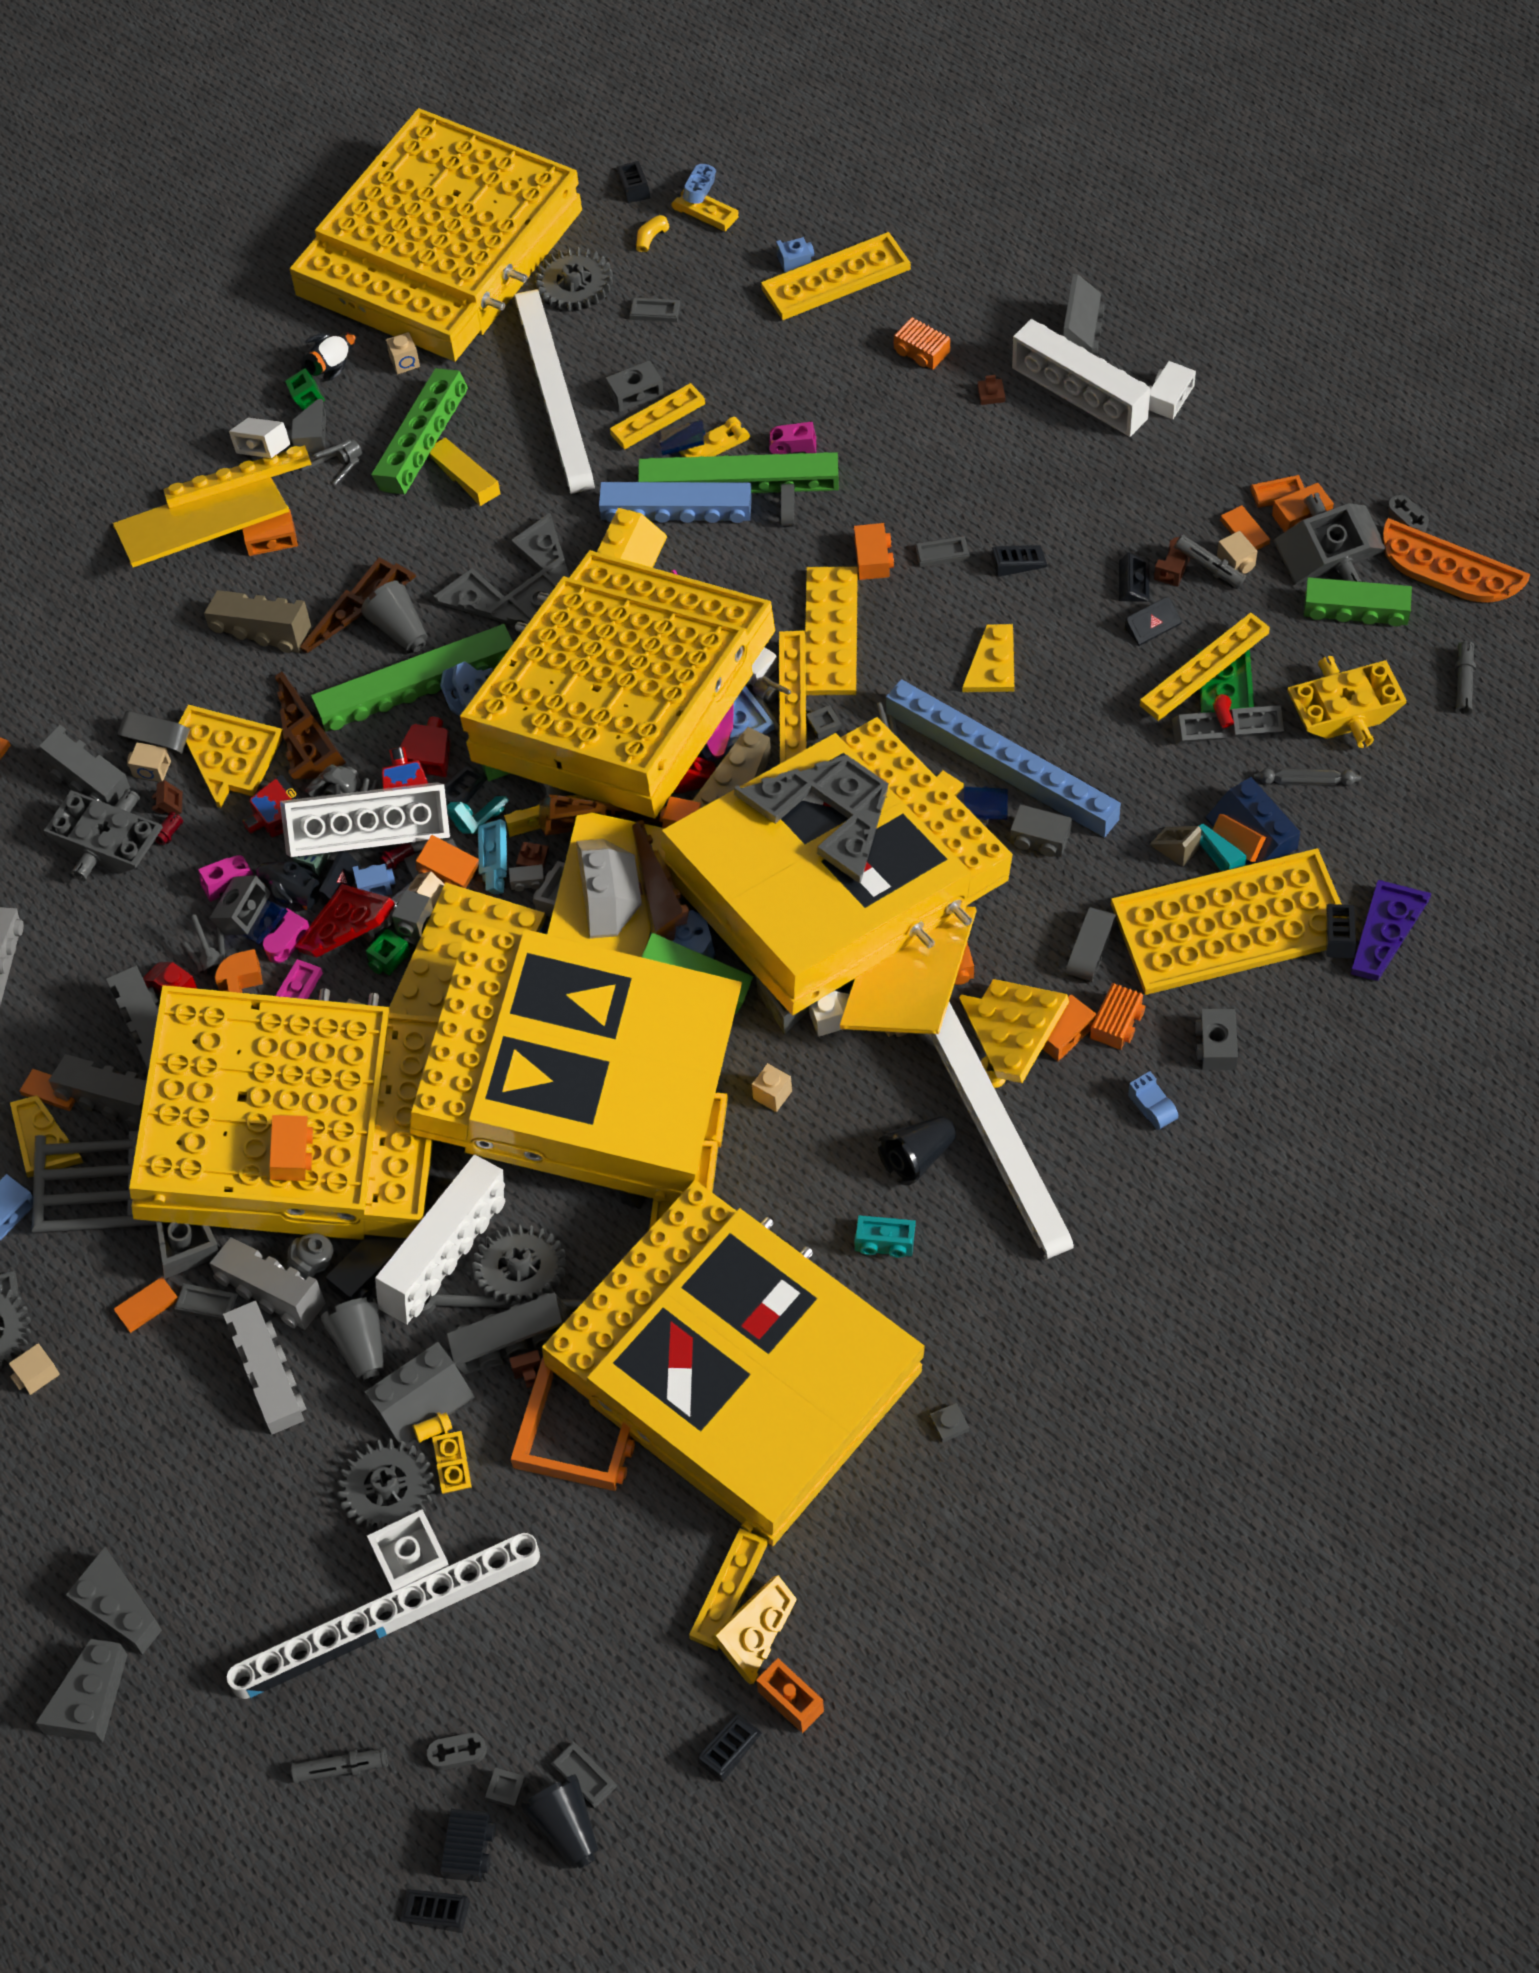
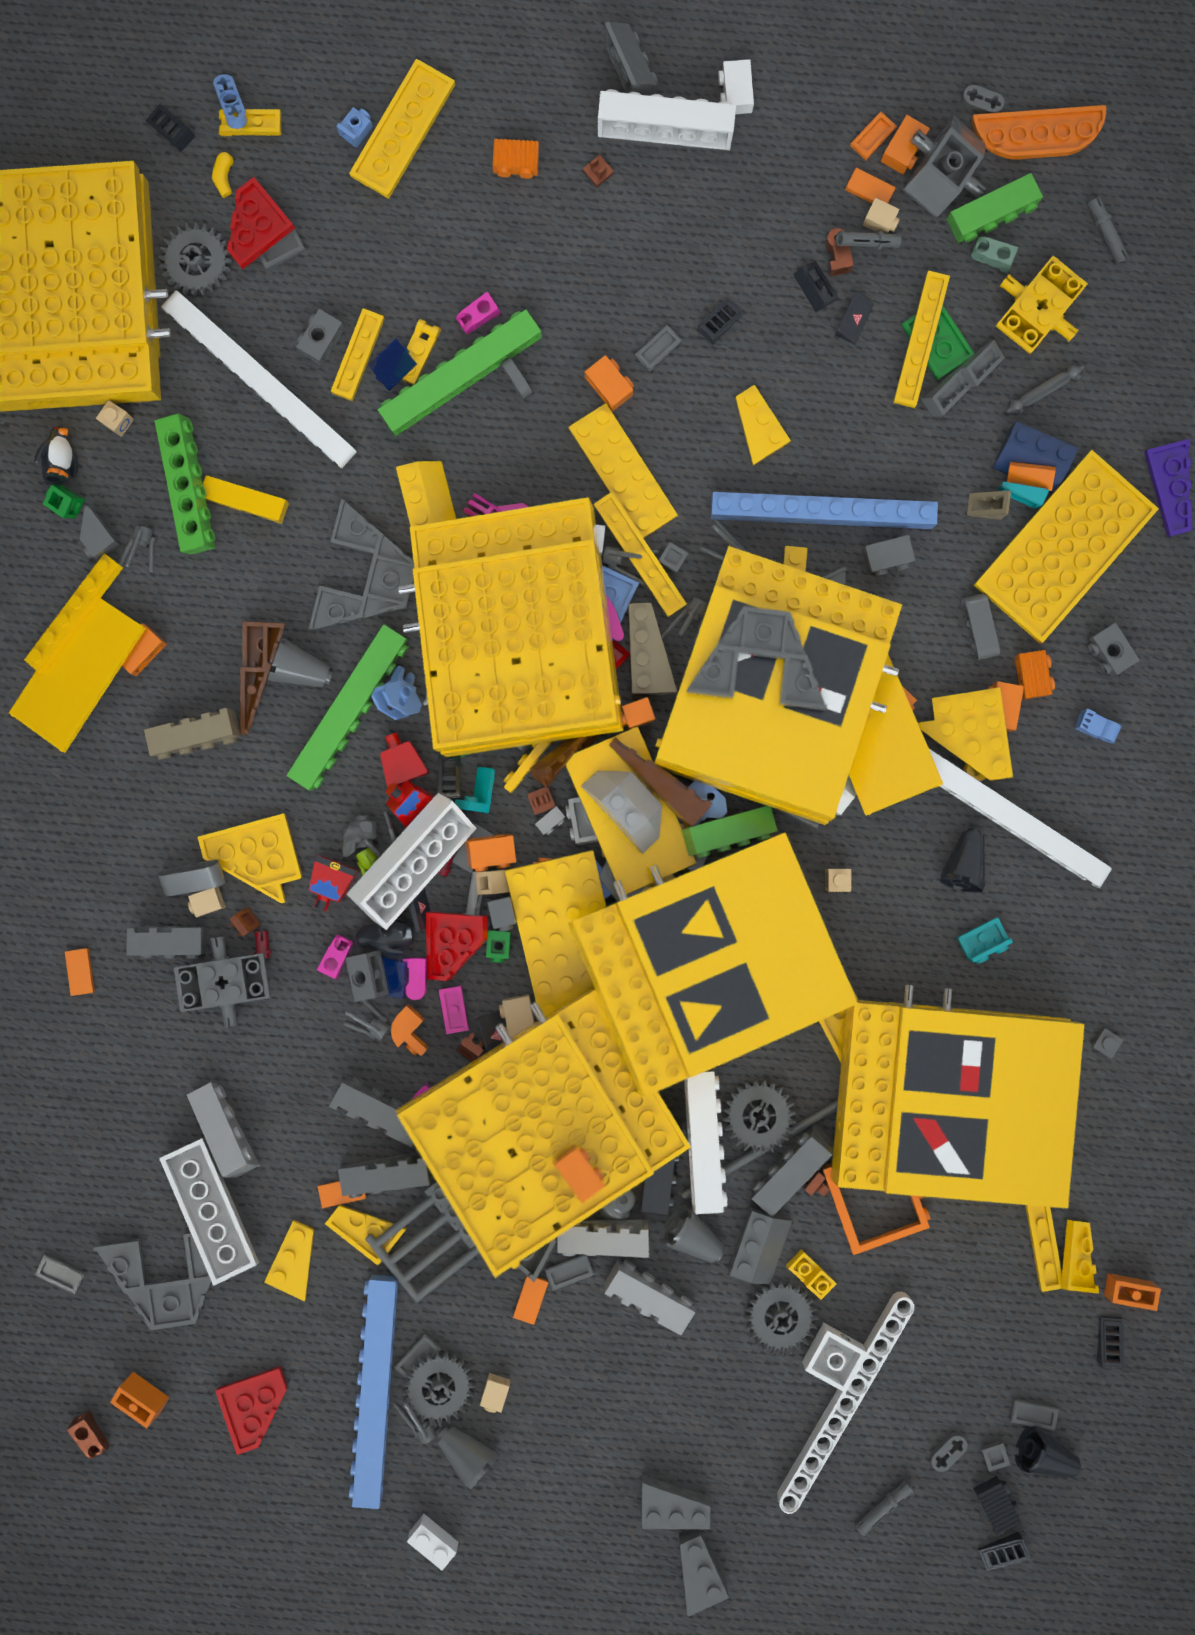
camera: 40 degrees left, 30 degrees up
(168, 975) = (360, 1064): red slope -> none
(259, 437) = (66, 571): white brick -> none
(307, 742) = (313, 813): reddish brown wedge -> none
(375, 879) = (445, 894): medium blue brick -> none
(432, 1427) = (784, 1262): yellow pin -> none
(493, 855) = (515, 820): medium azure hinge -> none
(646, 279) = (255, 224): none -> red plate
(678, 500) = (429, 428): medium blue brick -> none
(987, 802) = (834, 555): clear blue piece -> none
(1222, 706) = (956, 369): red arm -> none
(1333, 639) = (994, 253): none -> sand green leg
(1336, 941) = (1146, 522): black slope -> none

